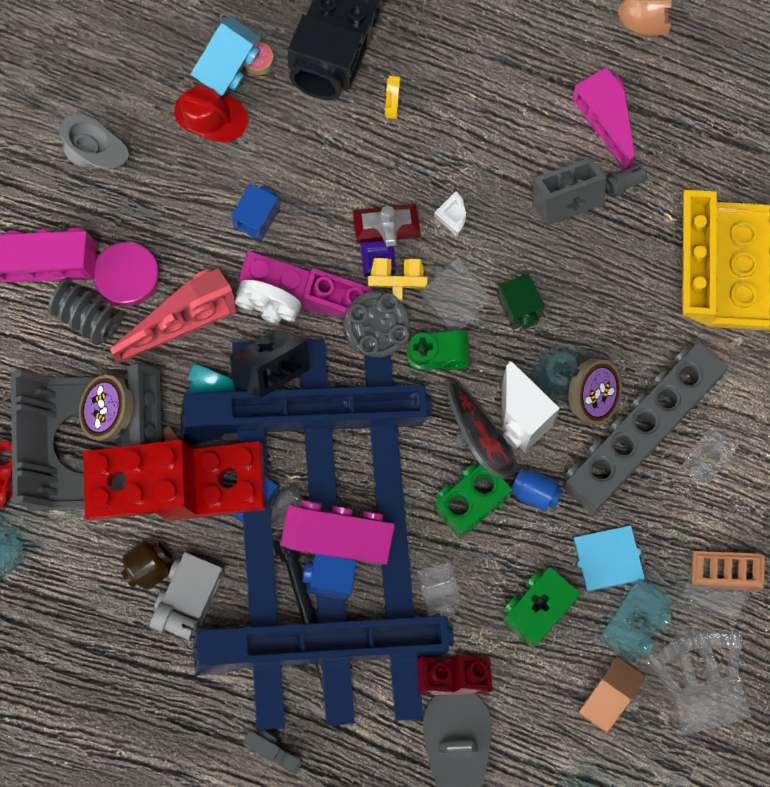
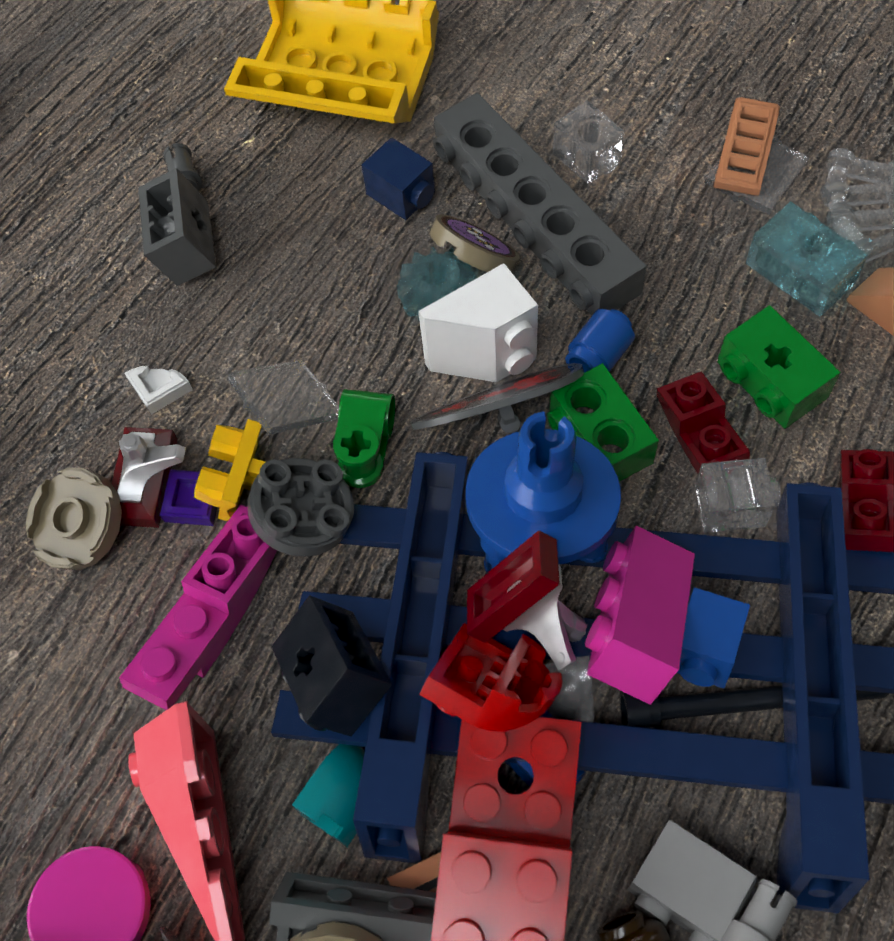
camera: 70 degrees left, 10 degrees down
(255, 211) = (54, 662): blue brick -> none
(269, 299) = (216, 659): white tile -> none
(276, 453) = (492, 683): none -> red slope
(331, 461) = (524, 596): none -> dark red piece
(346, 193) = (74, 519): none -> dark tan tile
(389, 476) = (543, 484): none -> blue piece
(490, 566) = (700, 422): none -> dark red slope
(520, 302) = (318, 317): dark green brick -> none
(605, 107) = (83, 171): dark pink slope -> none
(608, 558) = (707, 284): medium azure piece -> none
(647, 330) = (399, 178): none -> dark blue brick

